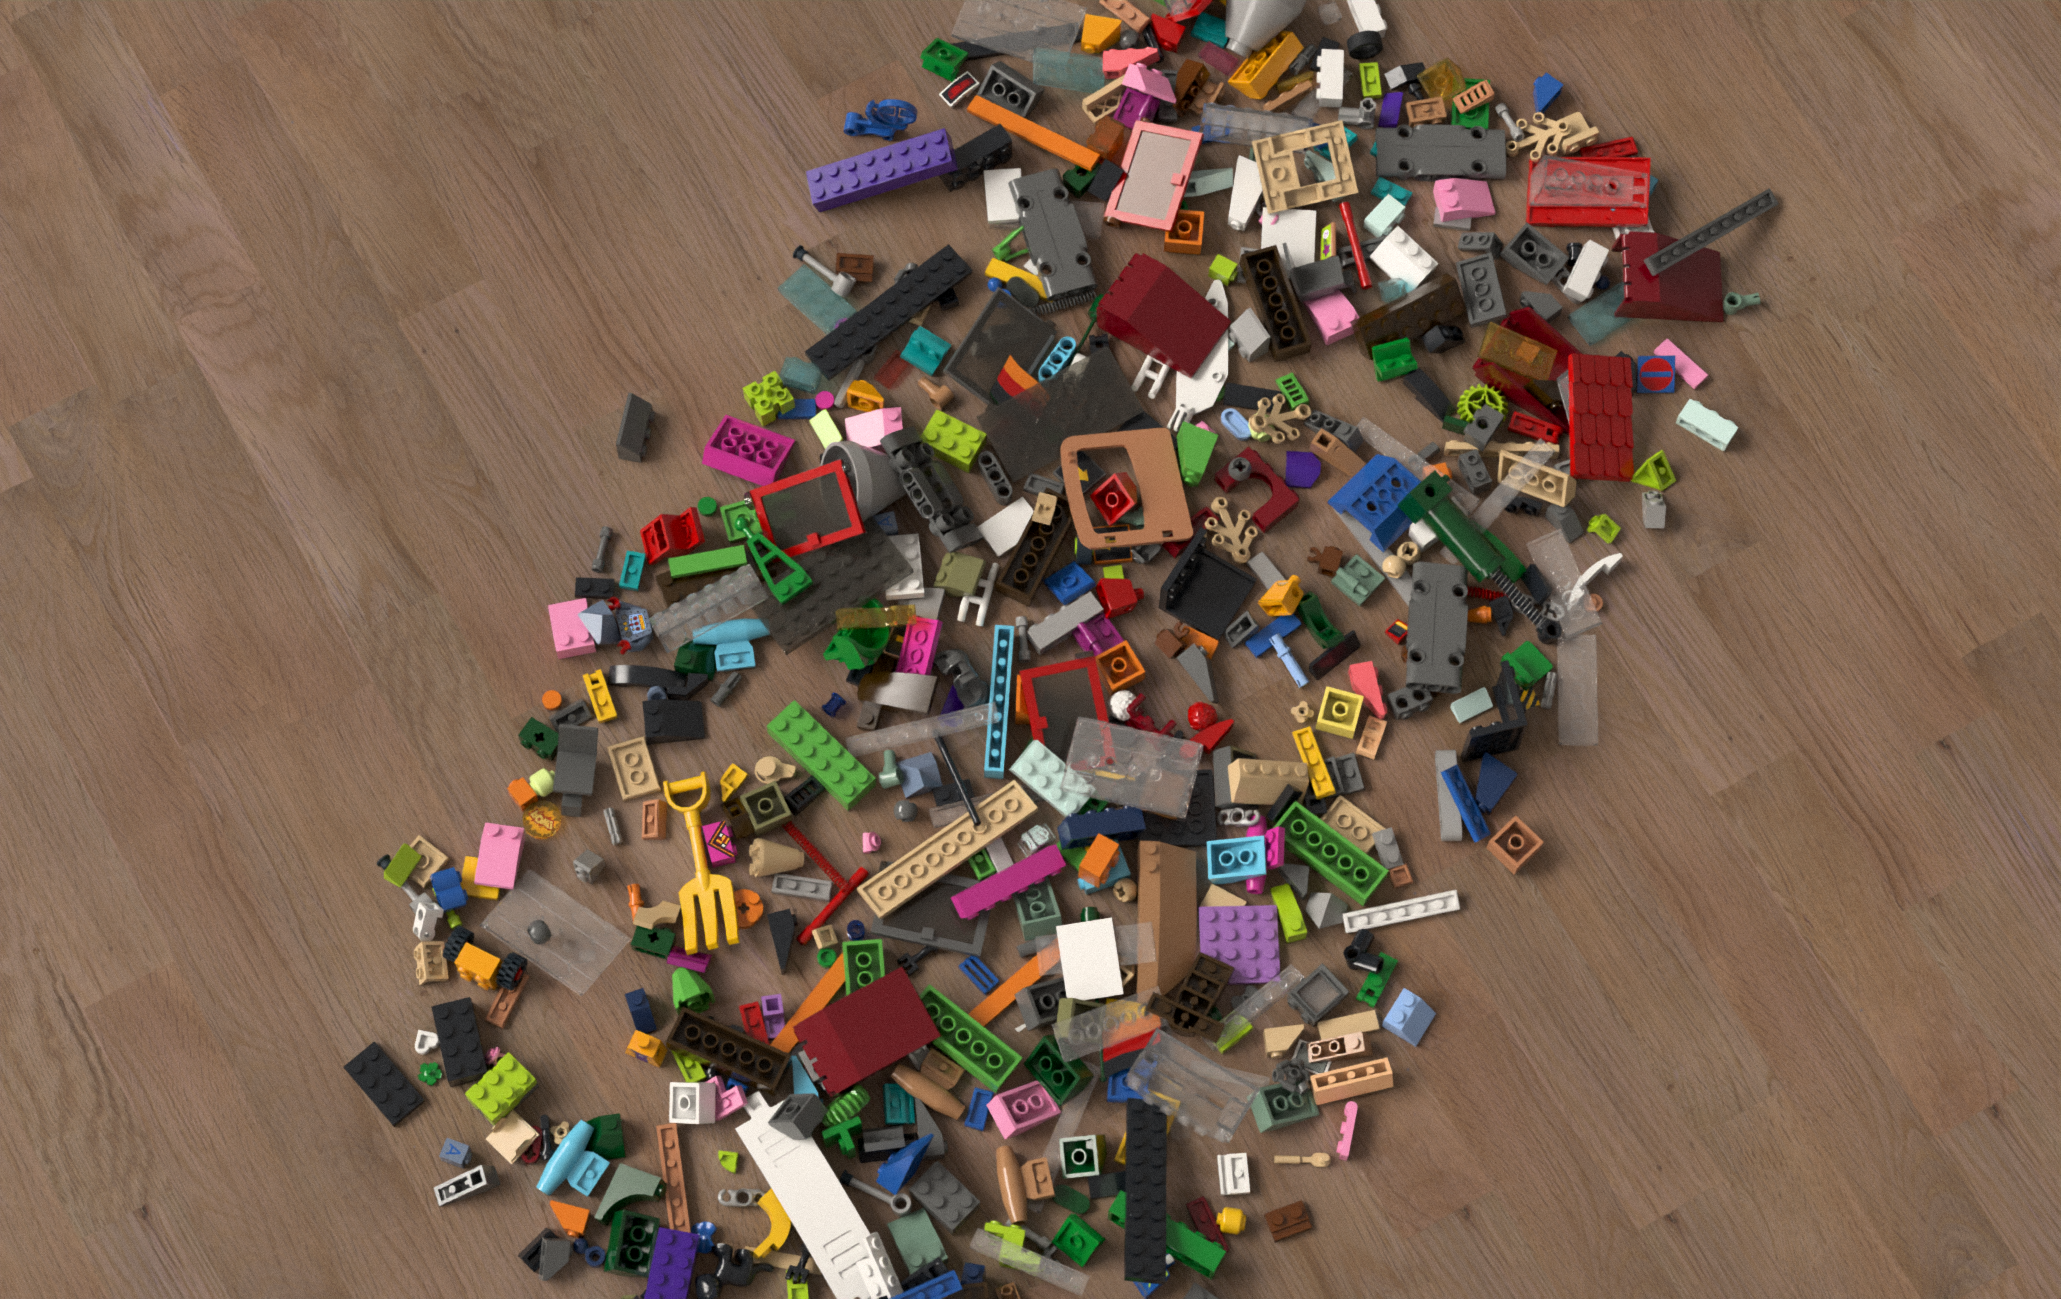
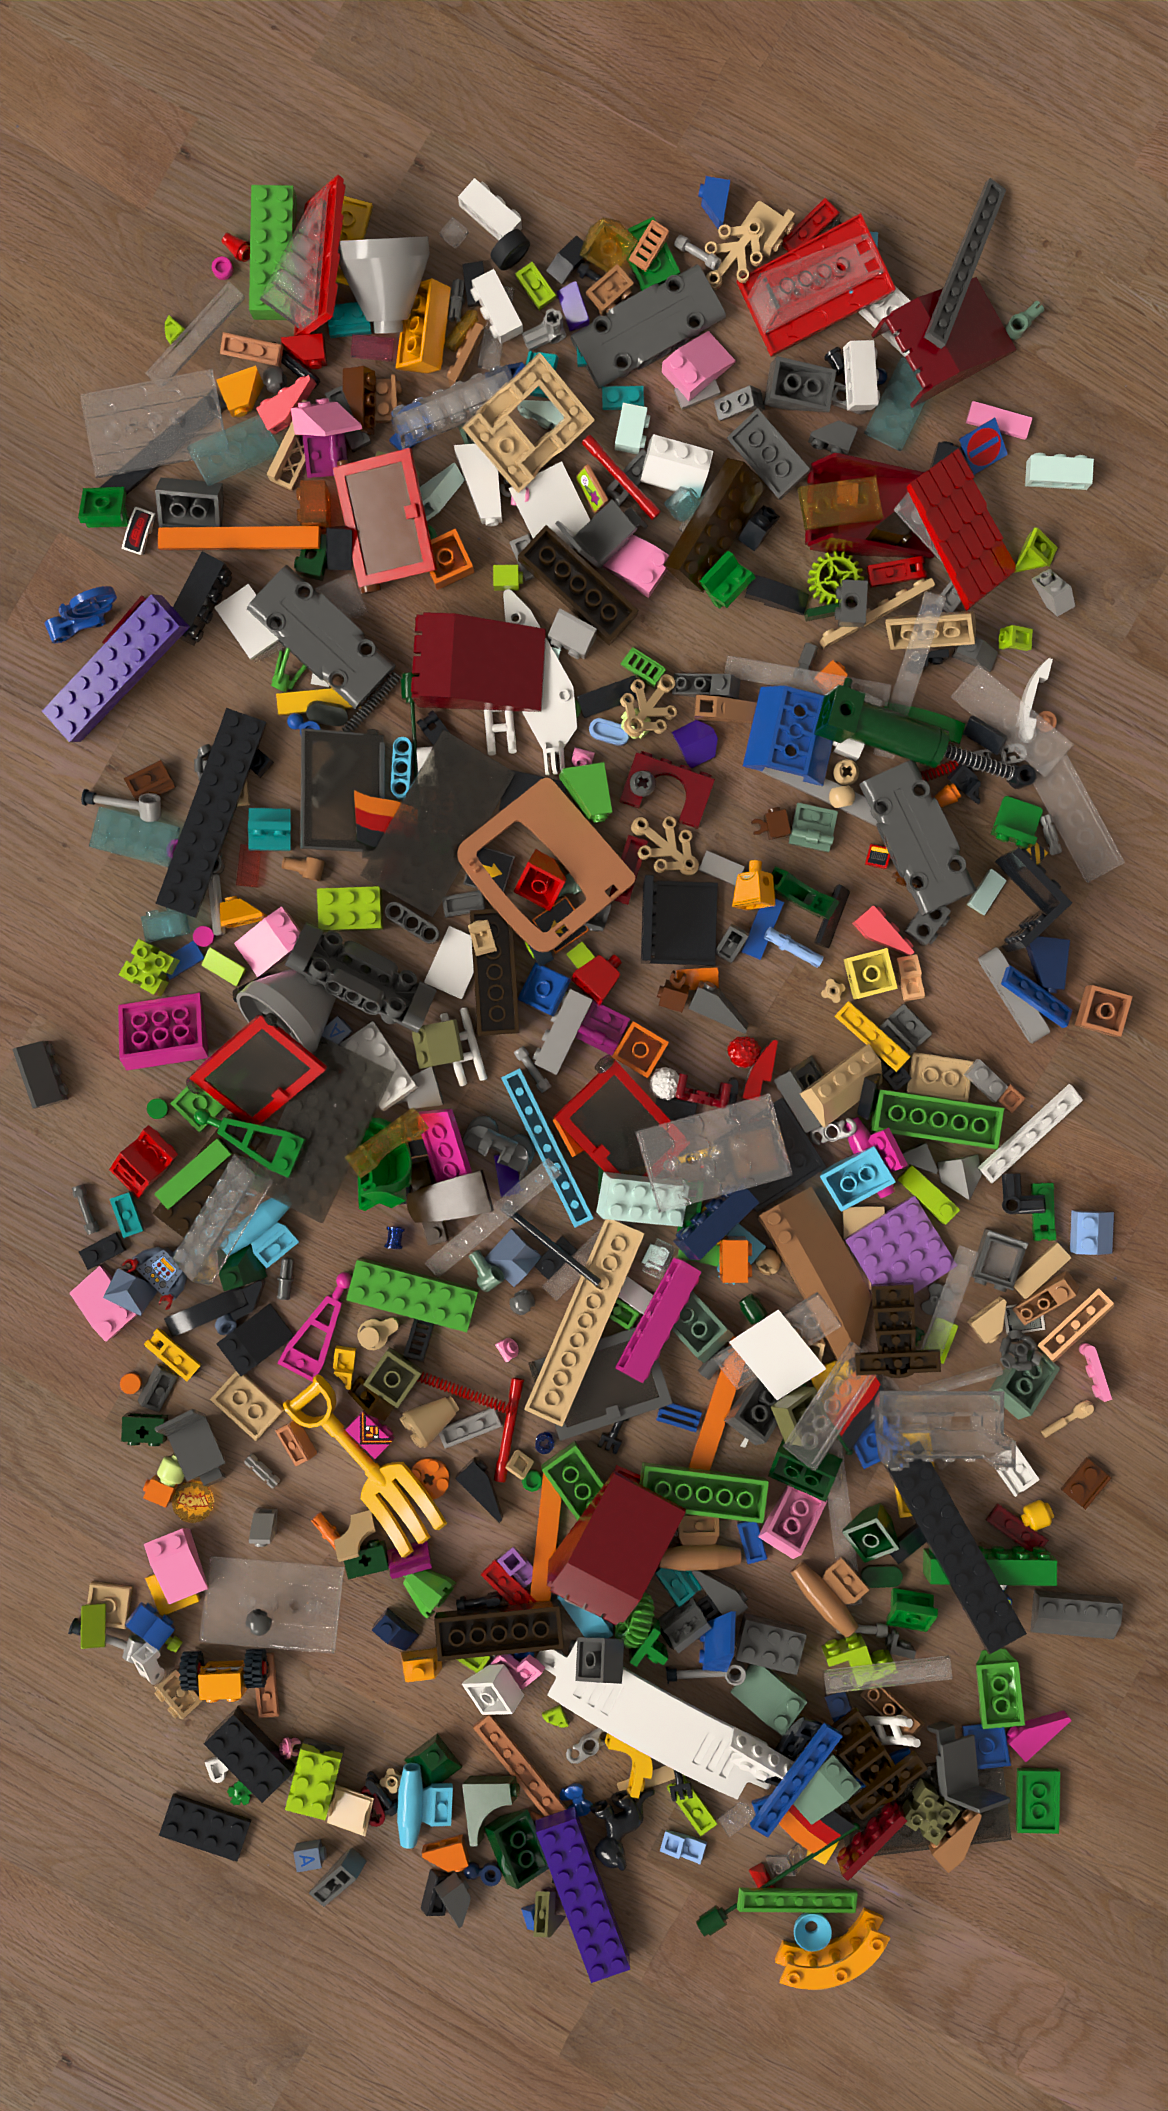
camera: 25 degrees left, 20 degrees up
(698, 758) = (301, 1362): none -> dark pink plate
(1474, 472) = (864, 652): dark grey brick -> none

